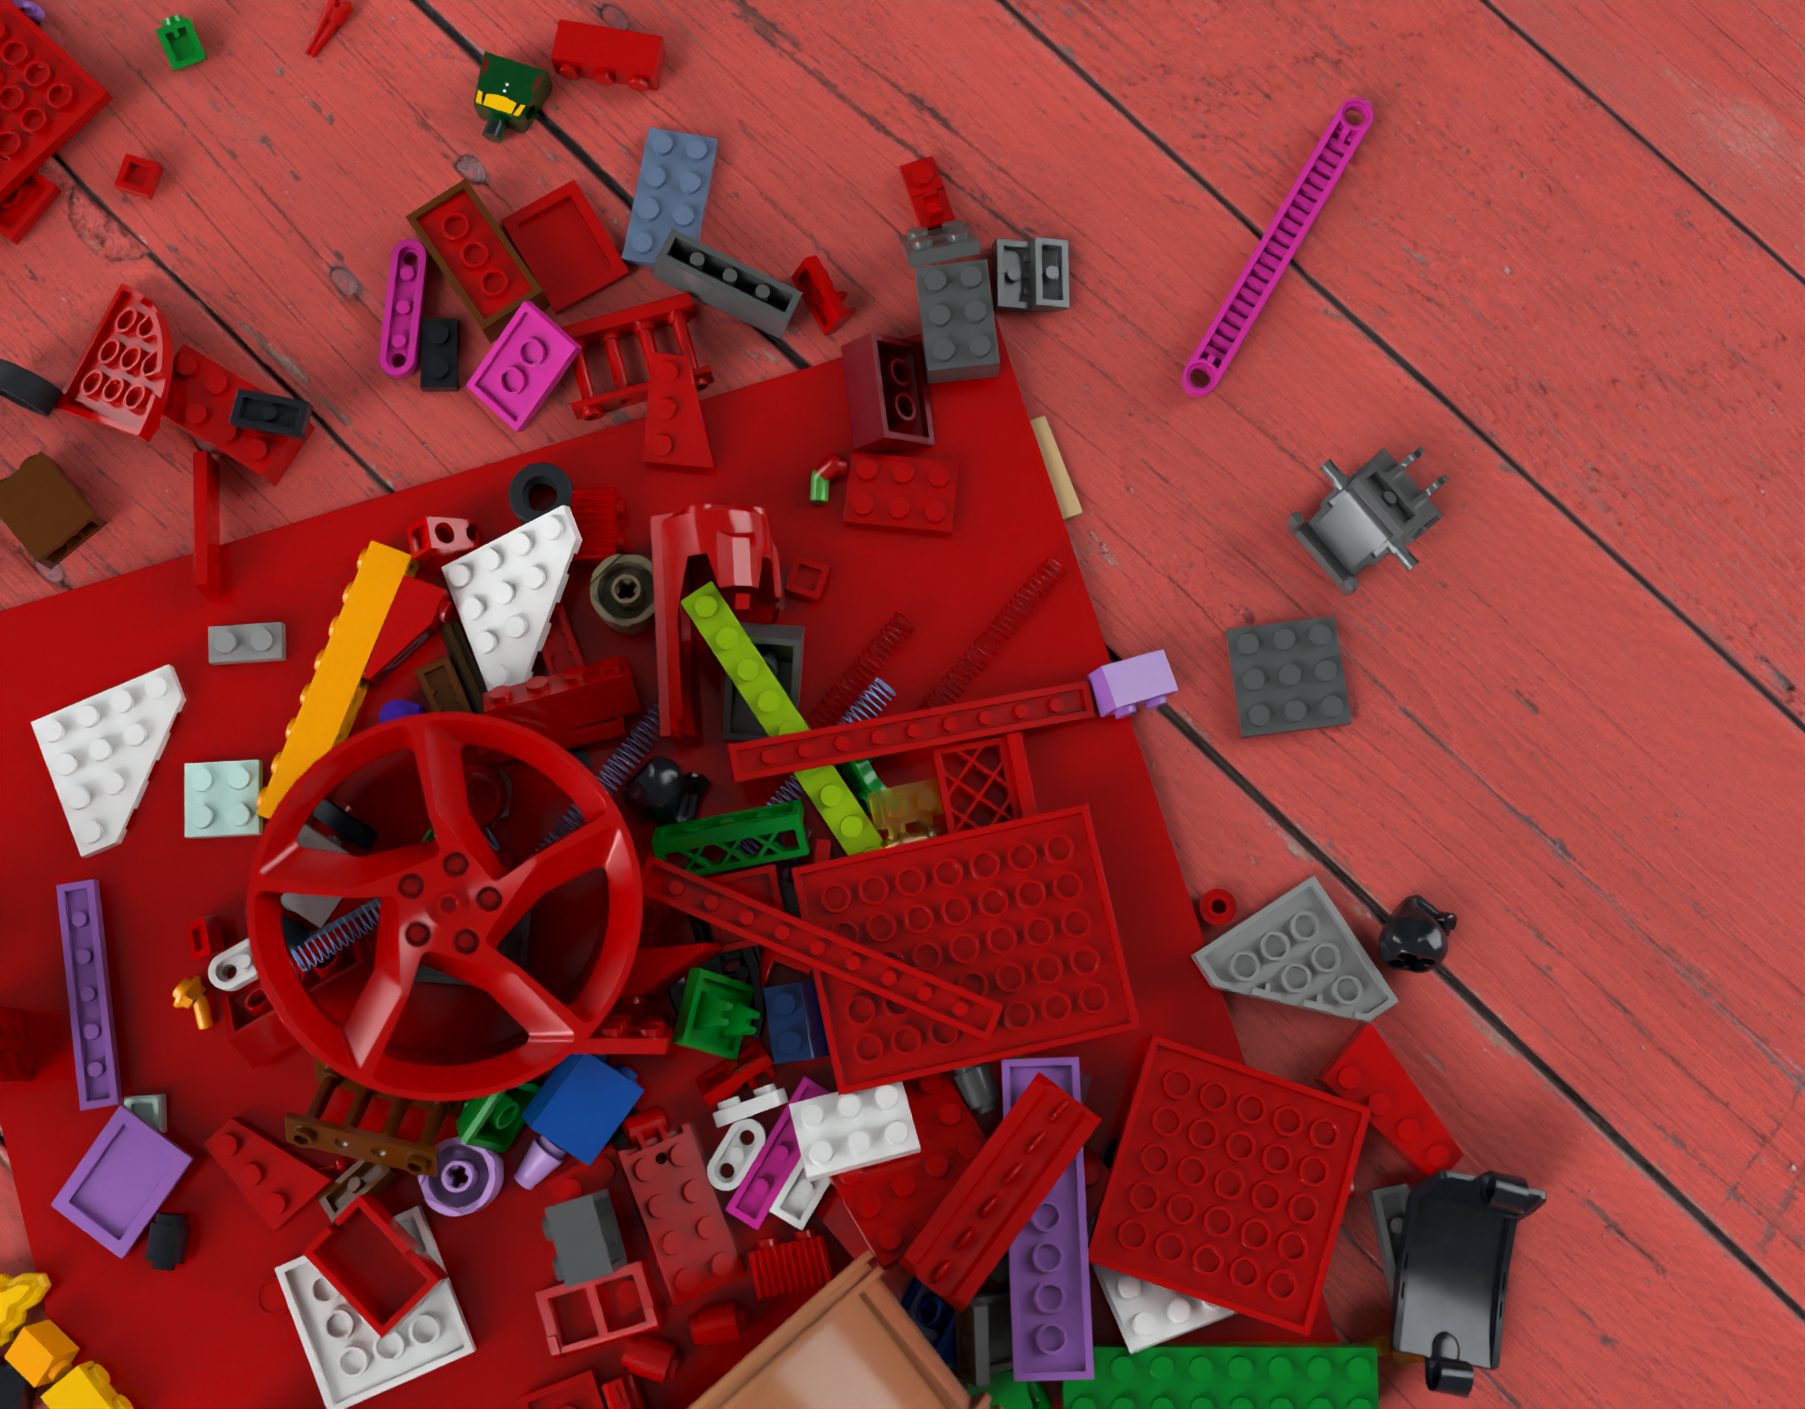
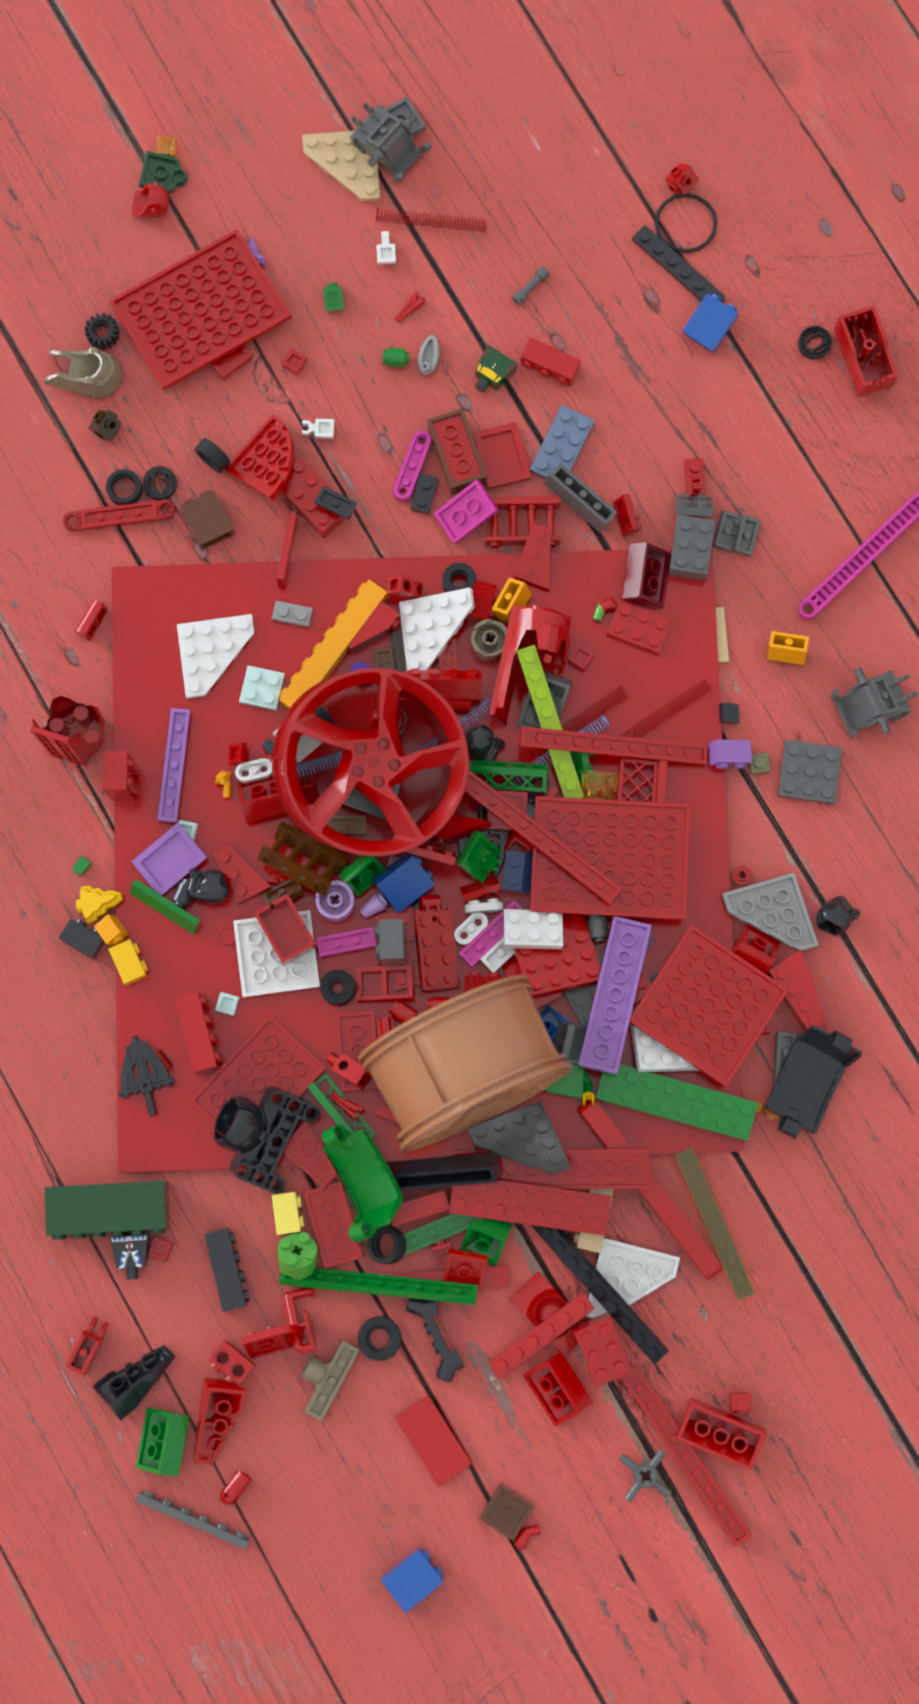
camera: 15 degrees right, 0 degrees up
(134, 1277) = (164, 906): none -> green tile
(207, 1218) = (208, 886): none -> black piece
(219, 286) = (322, 428): none -> white plate
(323, 120) = (395, 357): none -> green brick
(384, 100) = (429, 355): none -> light grey arm
(450, 1018) = (349, 824): none -> medium nougat tile
(494, 1358) = (333, 977): none -> black tyre
(498, 1250) = (346, 942): none -> dark pink plate
(648, 494) = (513, 593): none -> light orange brick
(999, 1192) = (596, 975): red plate -> none
(1109, 608) = (729, 713): none -> black tile
(1184, 458) = (787, 648): none -> light orange brick
(1193, 687) = (759, 764): none -> olive plate
(1285, 1042) = (756, 948): none -> red slope

